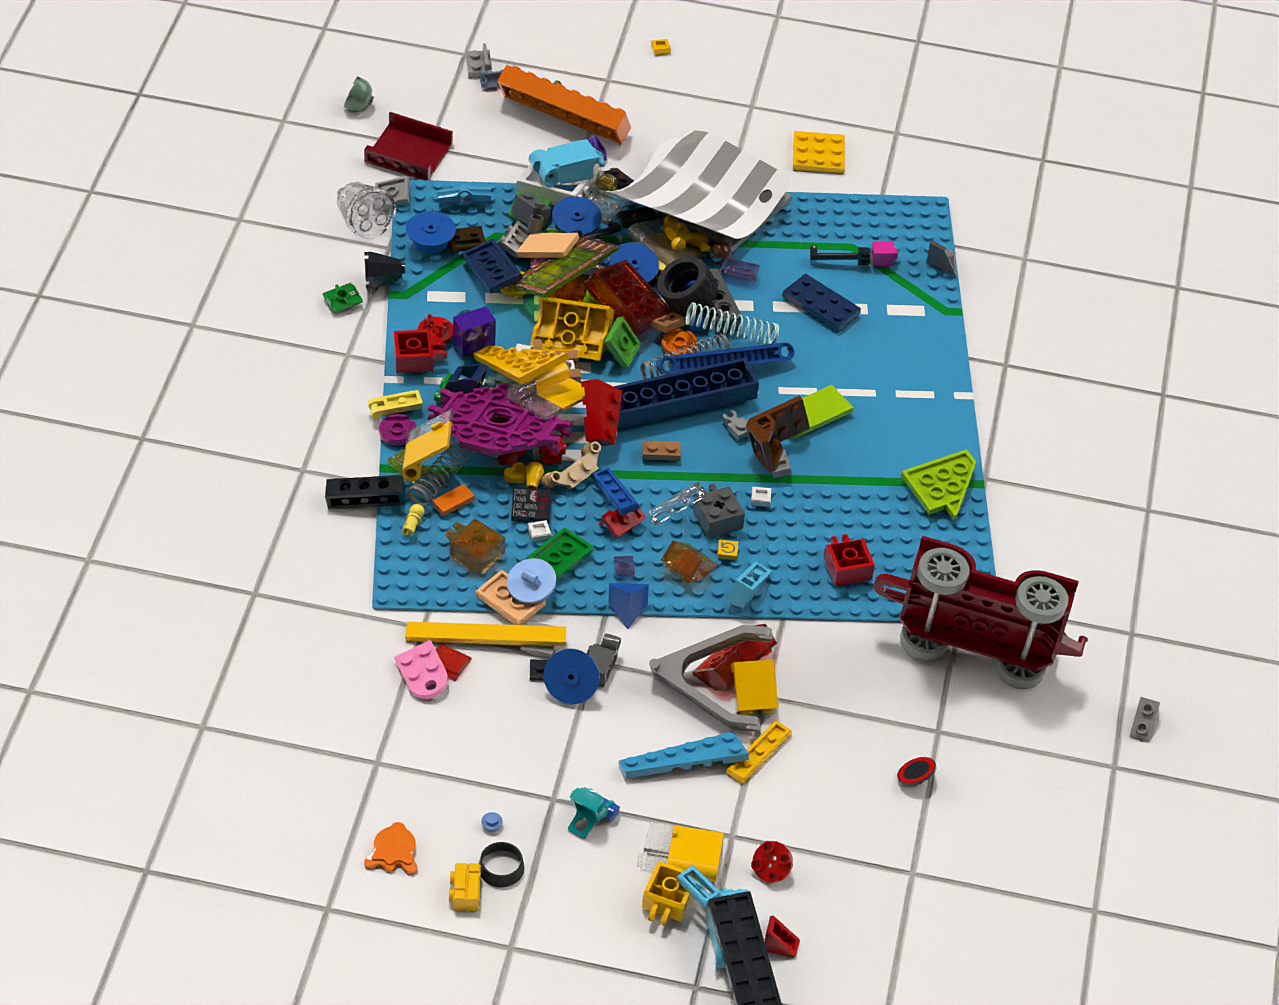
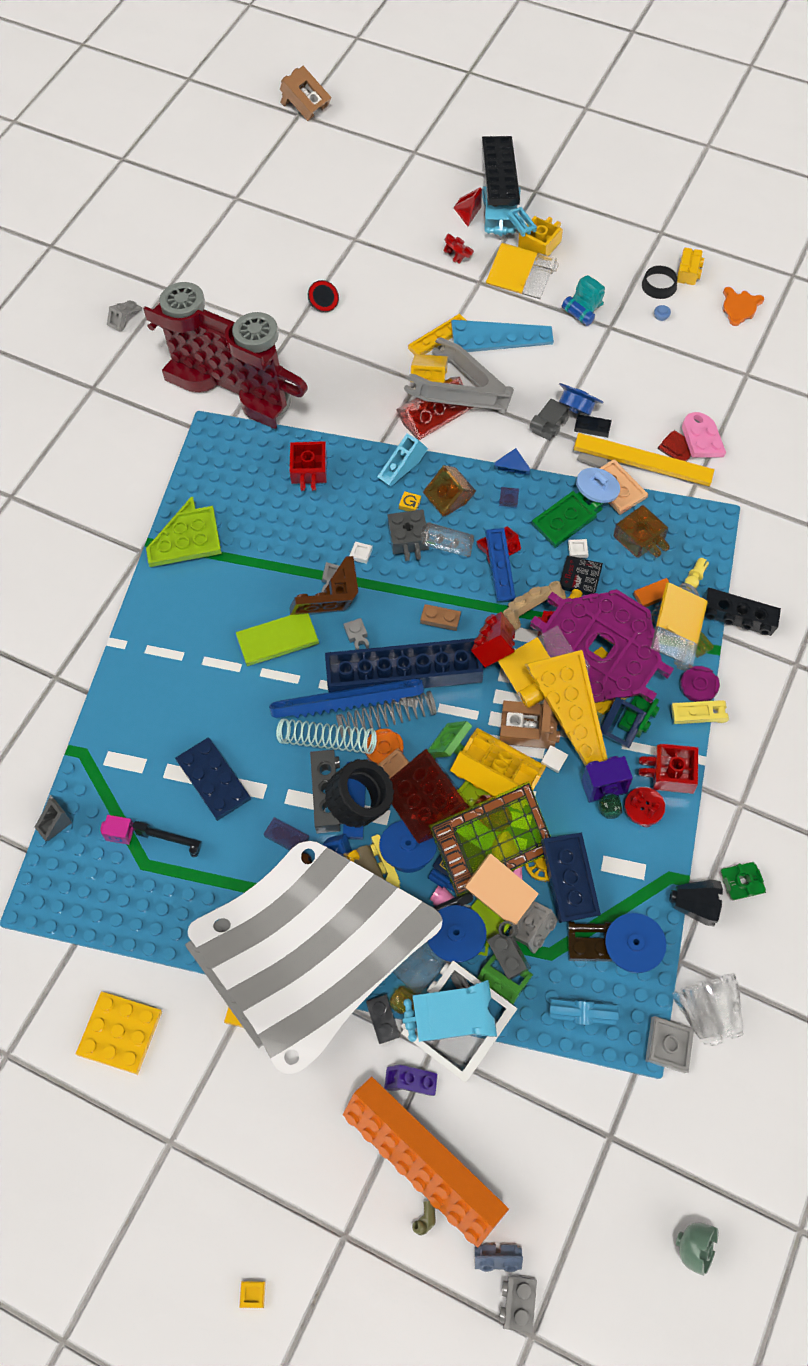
camera: 160 degrees left, 15 degrees up
(410, 147) = (638, 1133): dark red panel -> none

